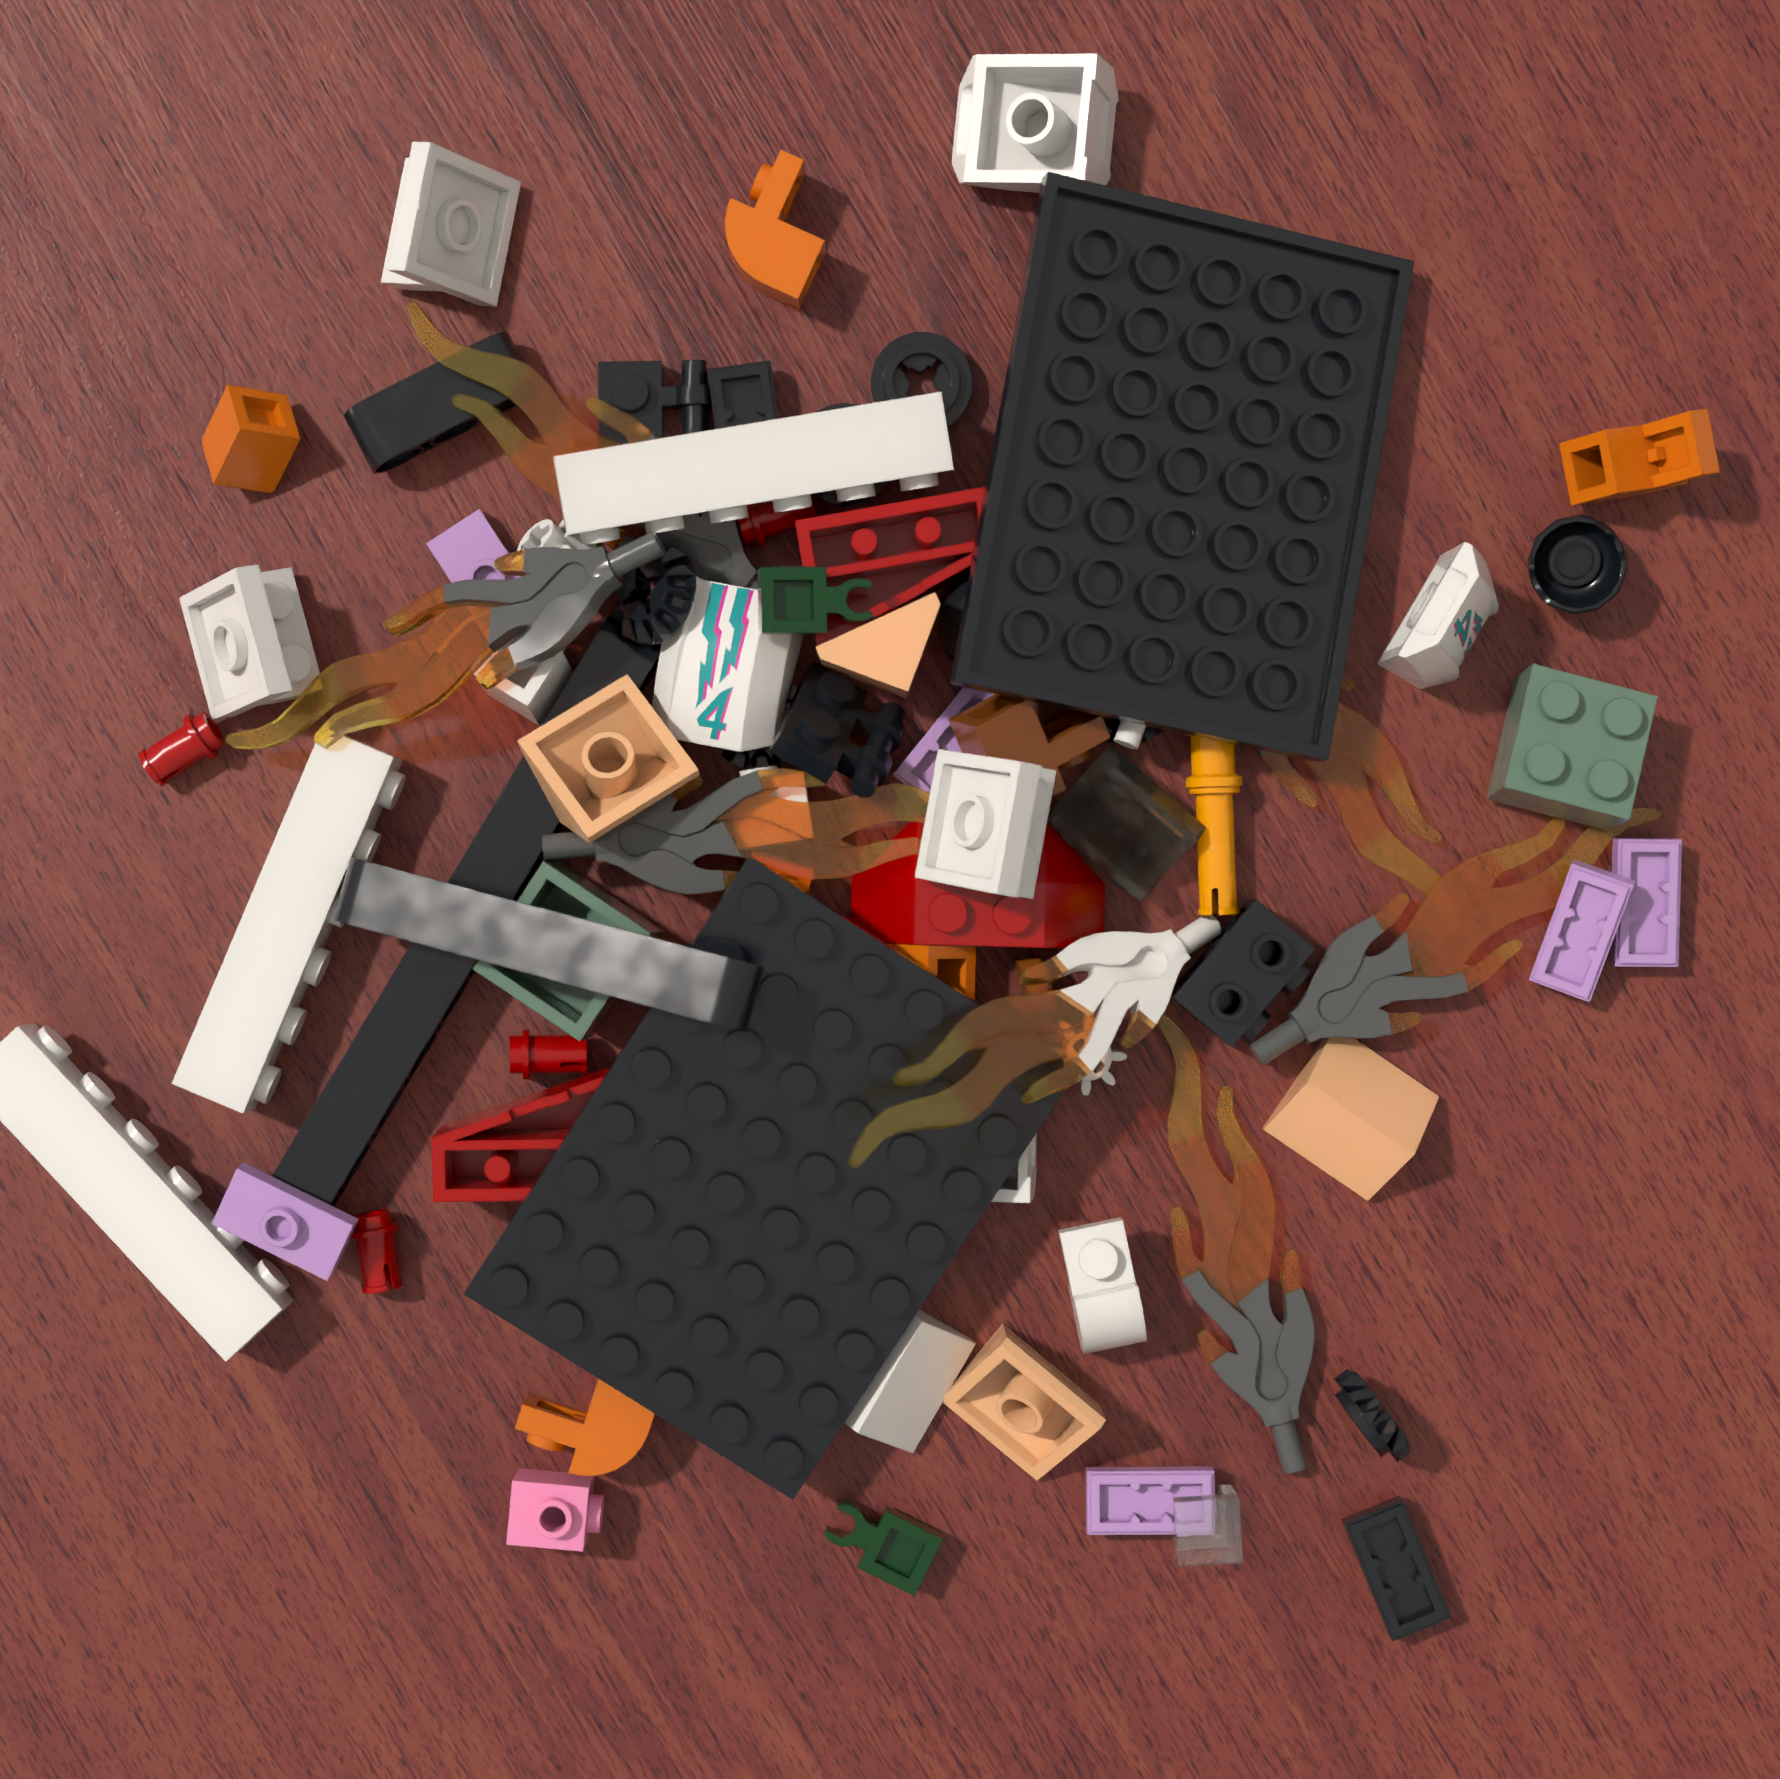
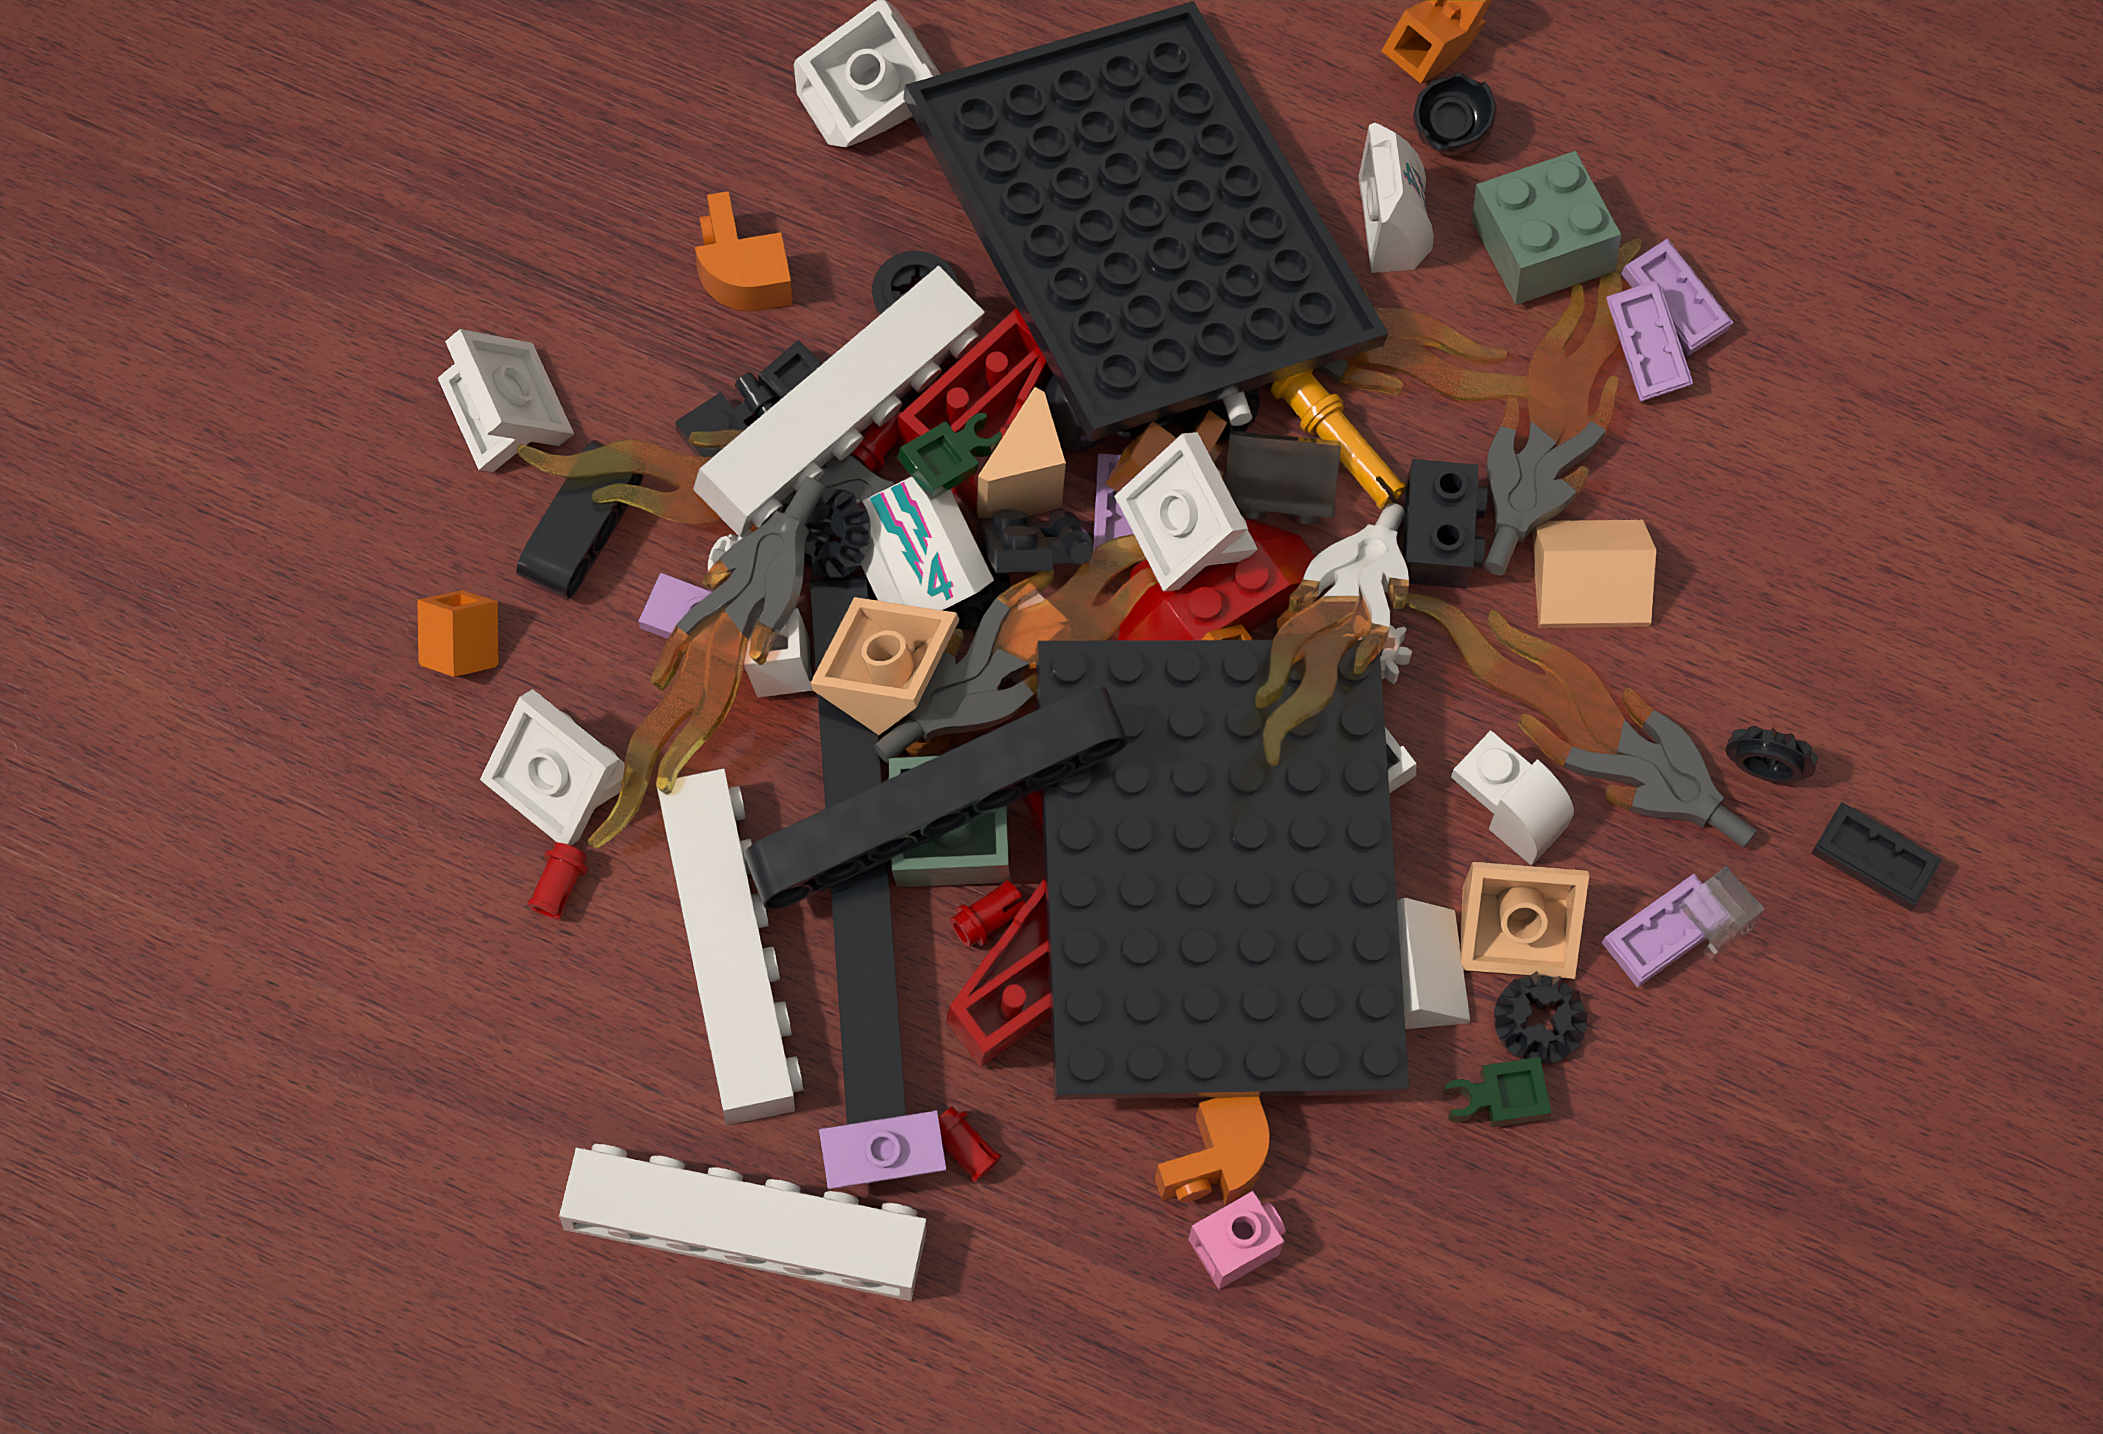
camera: 45 degrees left, 20 degrees down
(954, 1476) = (1514, 1011): none -> black gear

